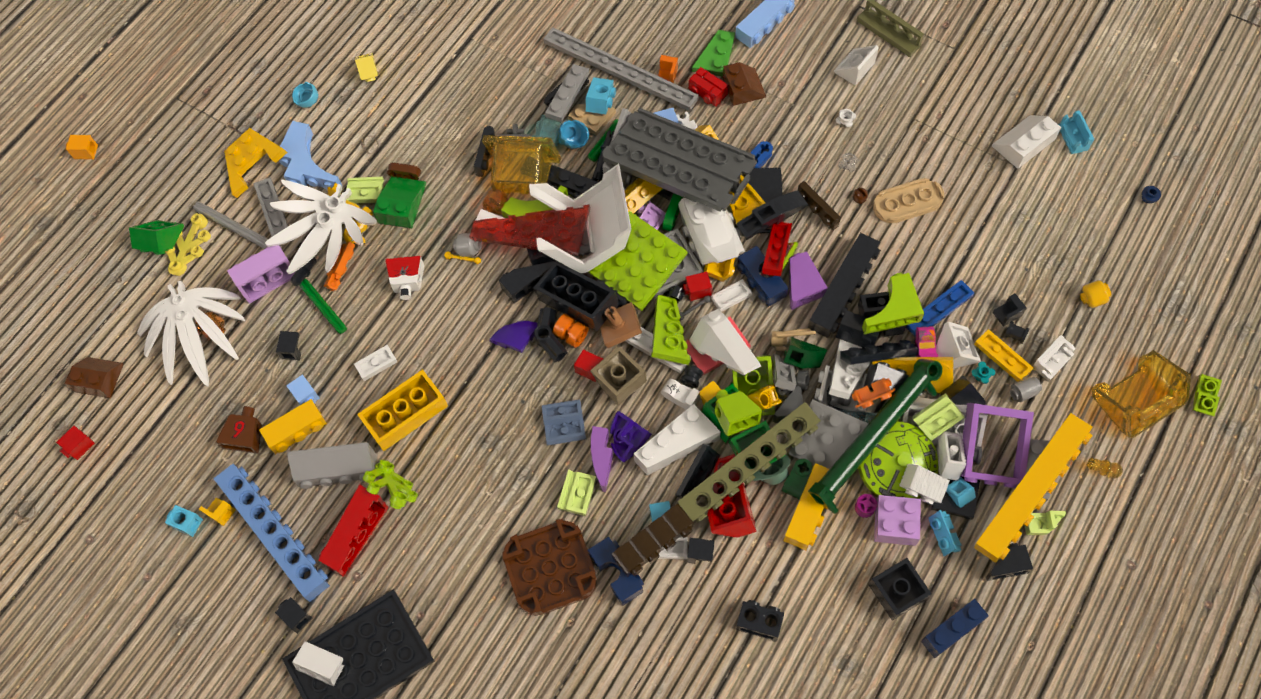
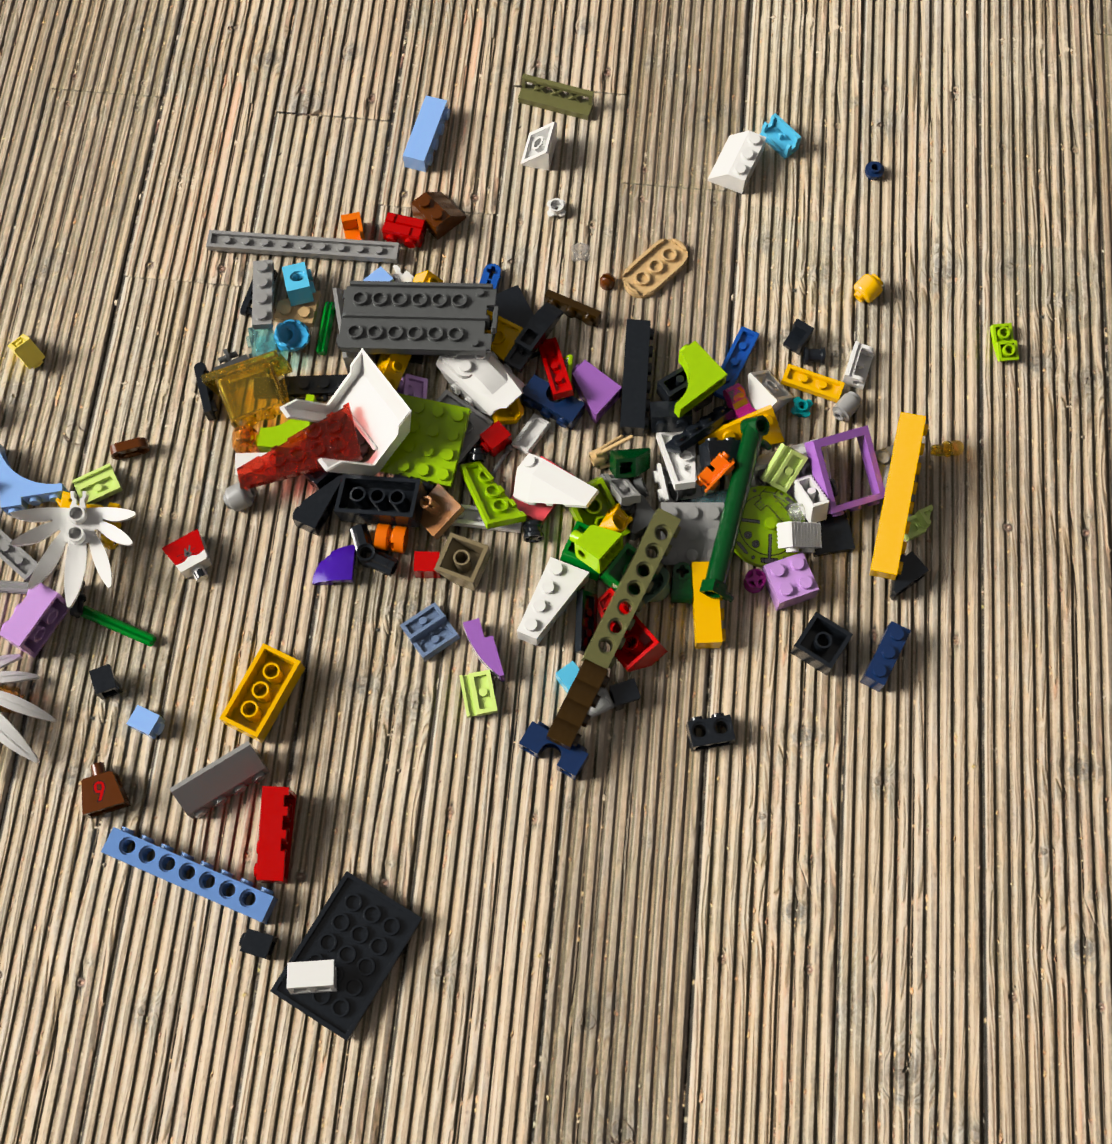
camera: 30 degrees left, 5 degrees up
(190, 524) = (99, 911): medium azure brick -> none
(219, 511) = (122, 881): yellow panel -> none
(293, 427) = (155, 761): yellow brick -> none
(339, 268) = (115, 594): orange hinge -> none
(375, 363) = (206, 658): white plate -> none
(386, 470) = (292, 767): lime plant -> none
(399, 202) = (142, 481): green slope -> none
(448, 255) = (223, 516): yellow hinge -> none
(549, 568) = (488, 777): reddish brown tile -> none
(598, 173) = (335, 352): black pin -> none
(627, 436) = (499, 616): dark purple brick -> none
(672, 213) = (432, 372): green beam -> none
(680, 394) = (531, 553): white leg -> none
(709, 392) = (559, 539): yellow slope -> none
(716, 53) = (395, 192): bright green wing -> none
(932, 461) = (797, 512): none -> clear plate
(947, 541) = (831, 570): medium azure hinge -> none
(961, 492) = (834, 529): medium azure slope -> none
(963, 392) = (793, 434): black slope -> none
(1145, 395) = (952, 365): clear yellow windscreen -> none

